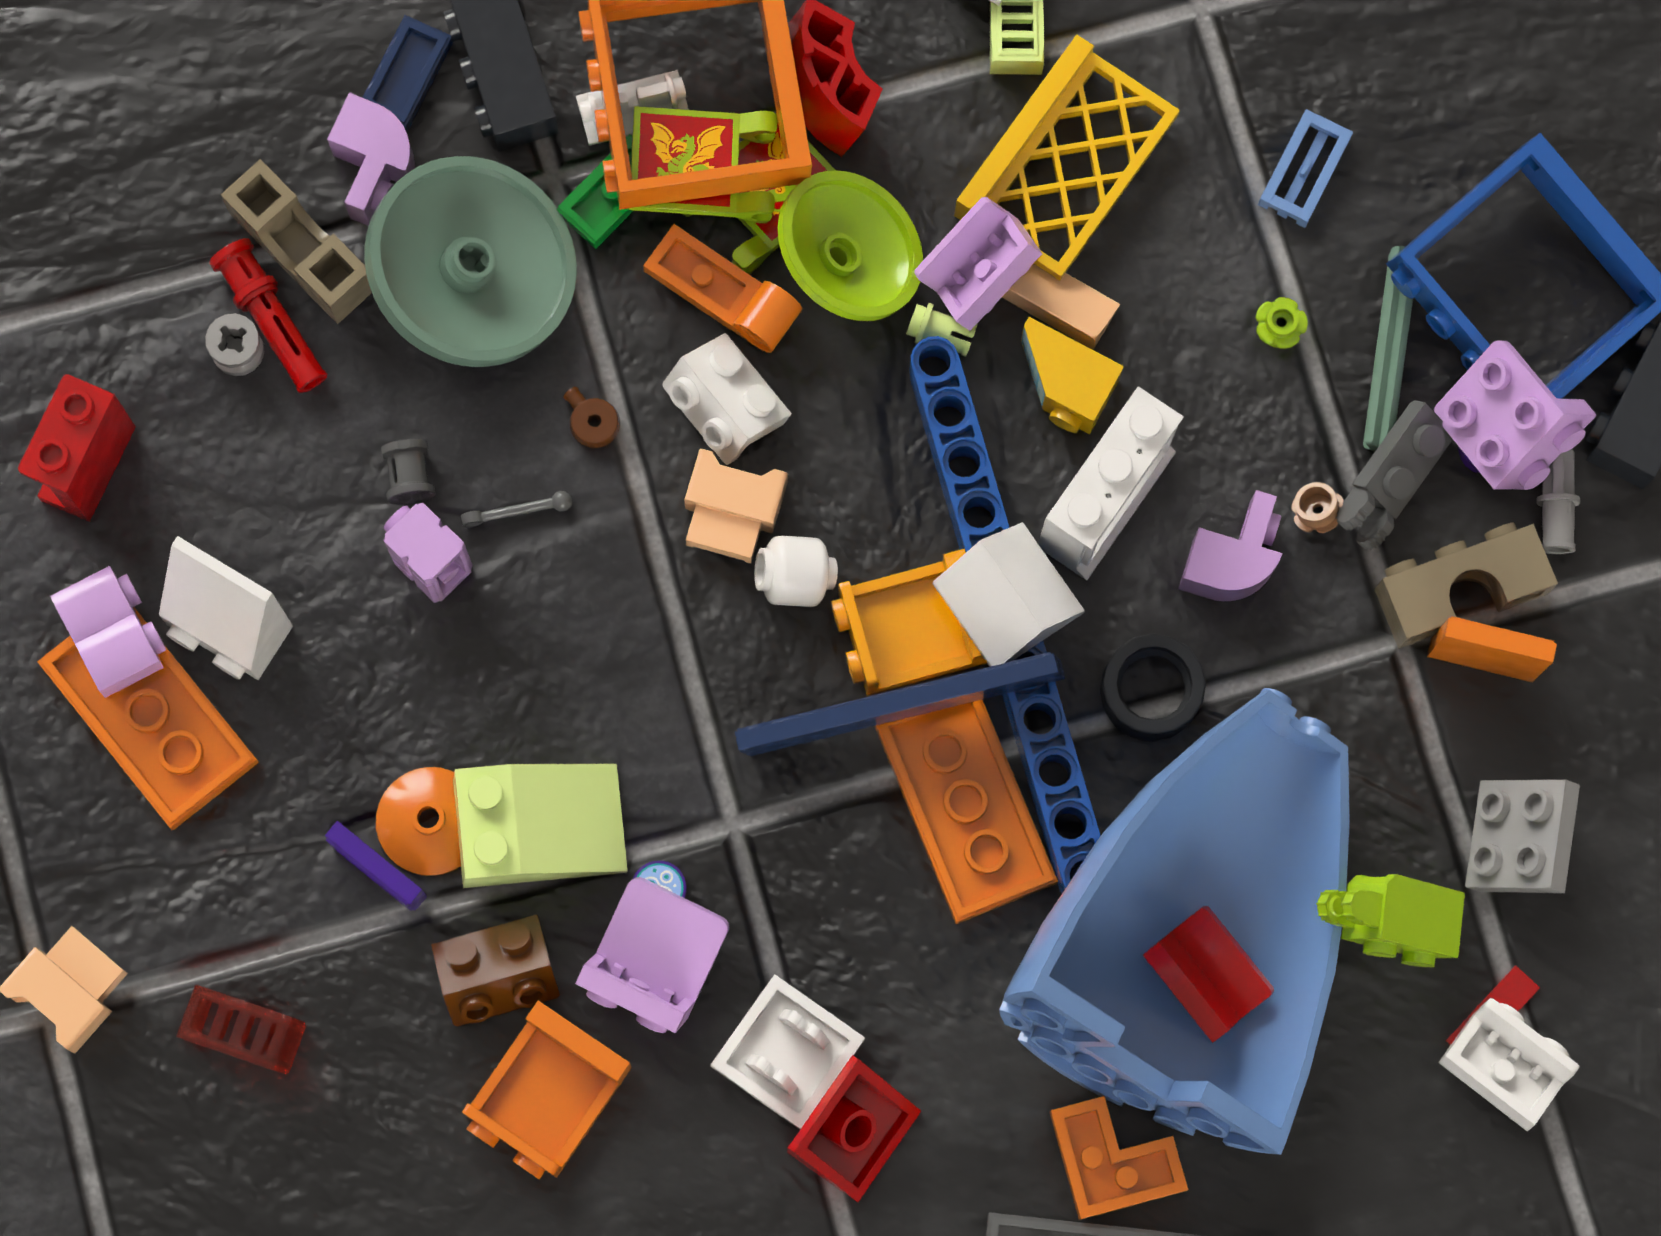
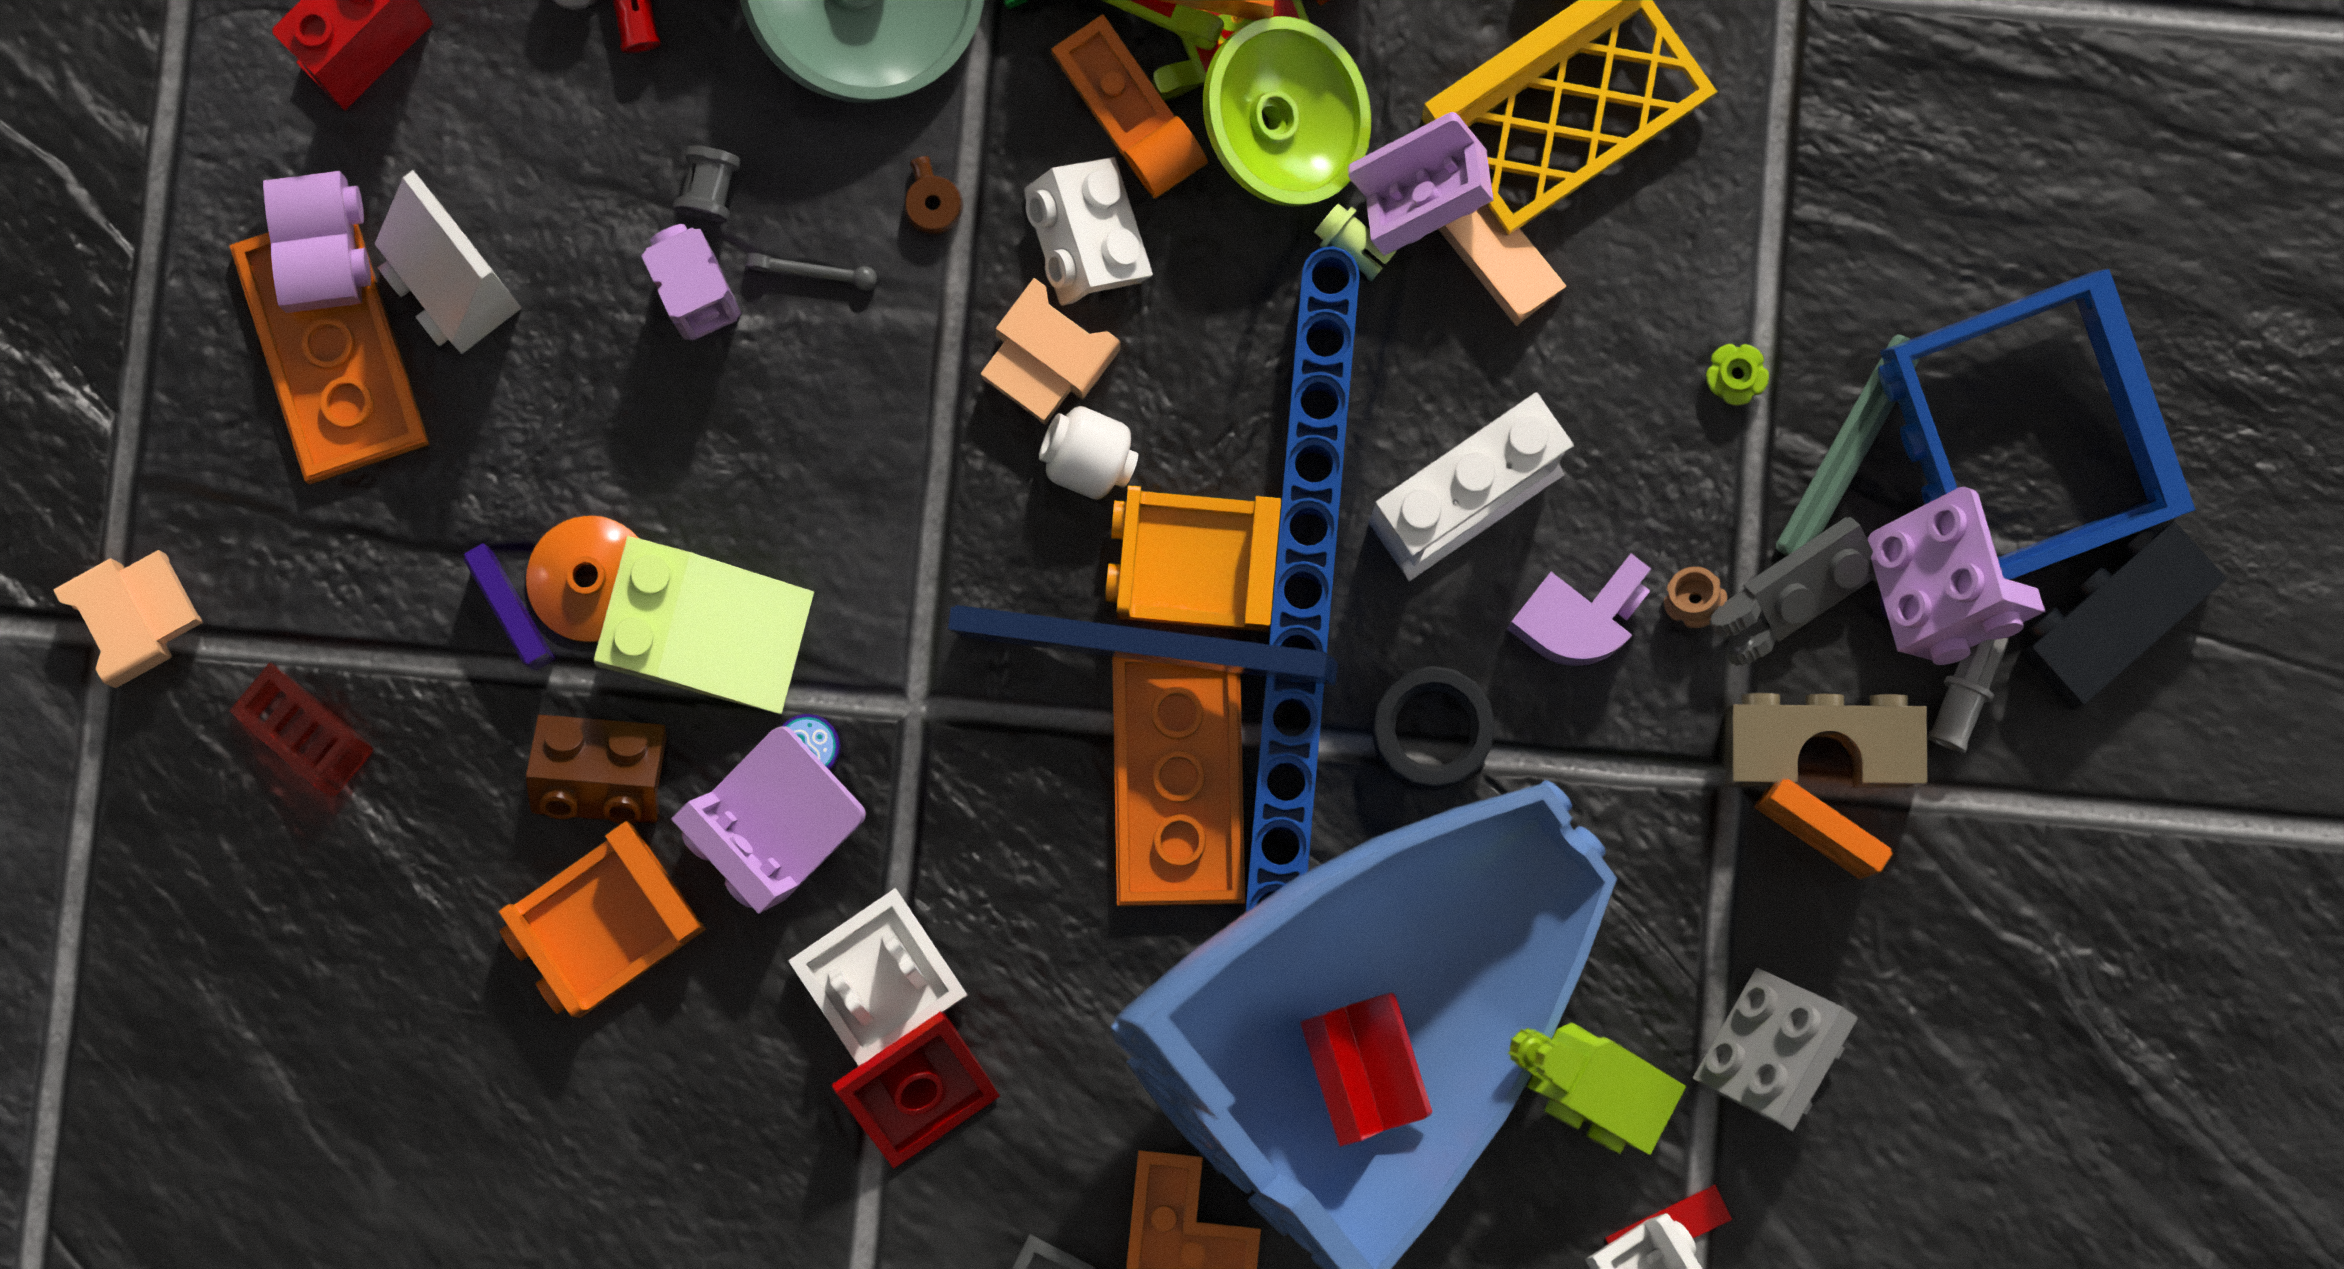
camera: 25 degrees right, 5 degrees up
(1007, 595) = (1308, 568): white slope -> none
(1068, 377) = (1475, 349): yellow slope -> none
(1286, 206) = (1796, 244): medium blue tile -> none

